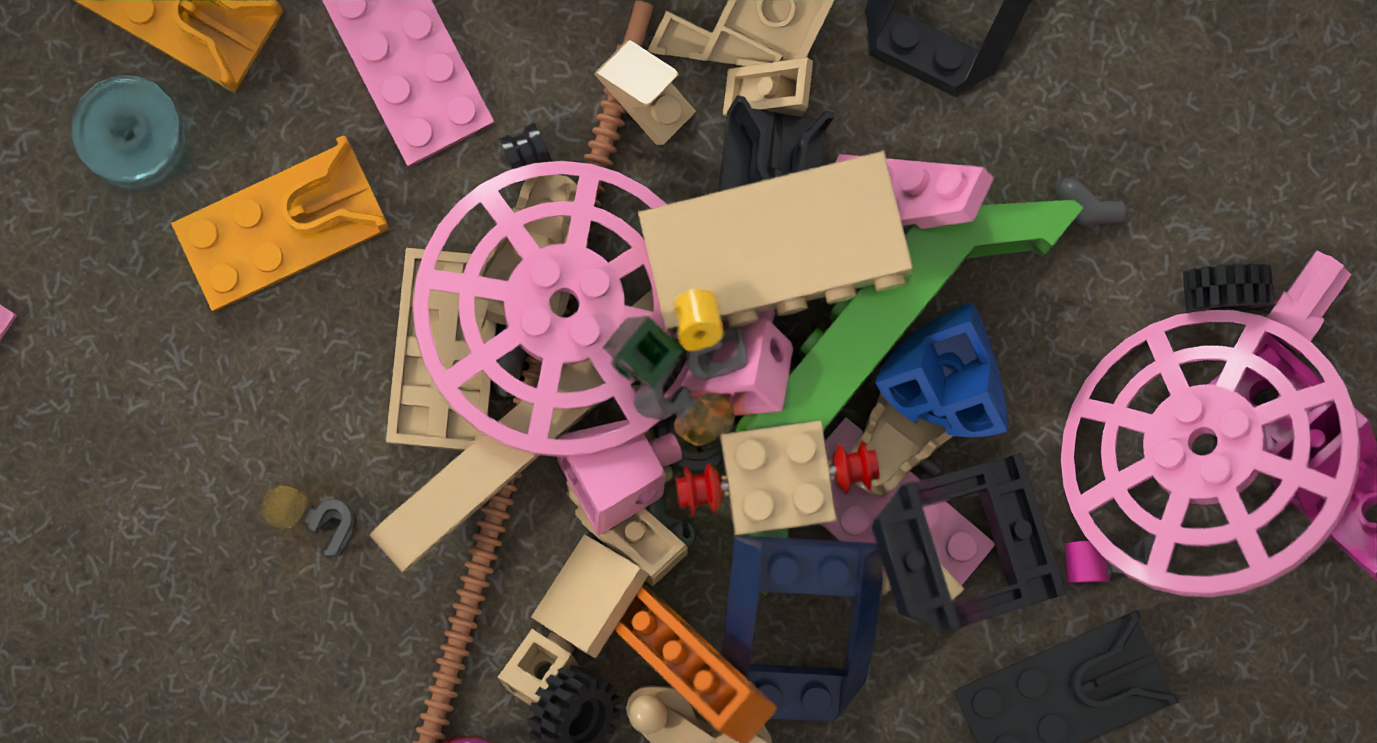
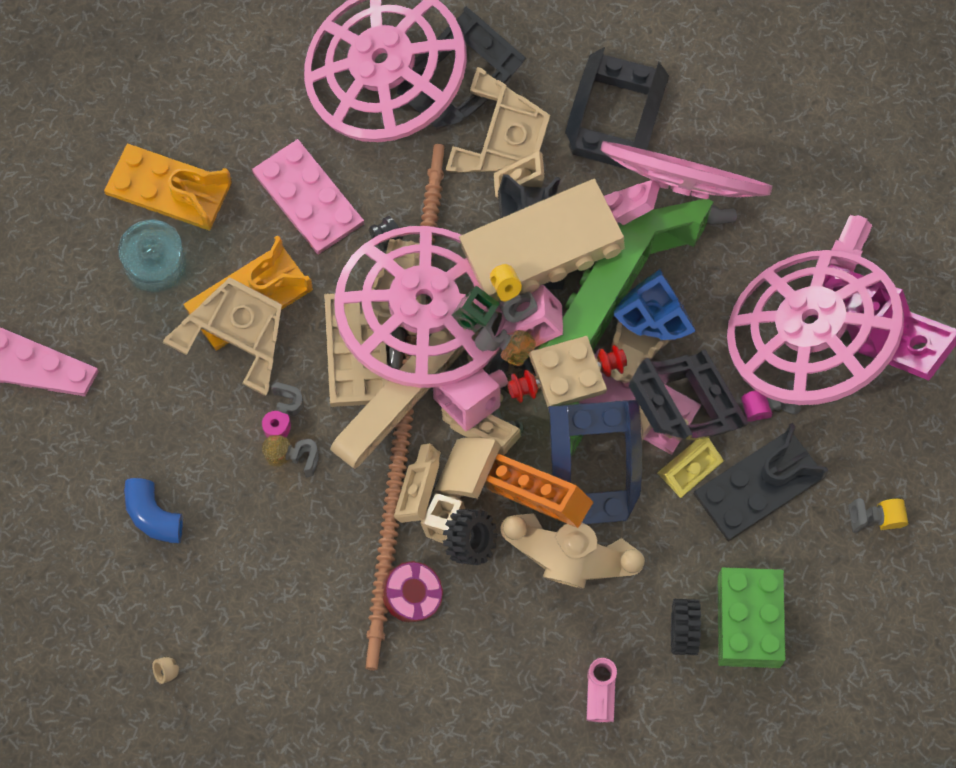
camera: 10 degrees left, 15 degrees down
(65, 586) = (148, 515): none -> blue cylinder
(258, 274) = (241, 319): none -> tan wing
(297, 462) = (278, 421): none -> leg
(507, 608) = (418, 485): none -> tan hinge
(646, 91) = (445, 186): tan slope -> none
(956, 651) = (691, 466): none -> light yellow slope
(1039, 165) = (684, 175): none -> bright pink dish
(1229, 288) = (804, 238): black tyre -> none

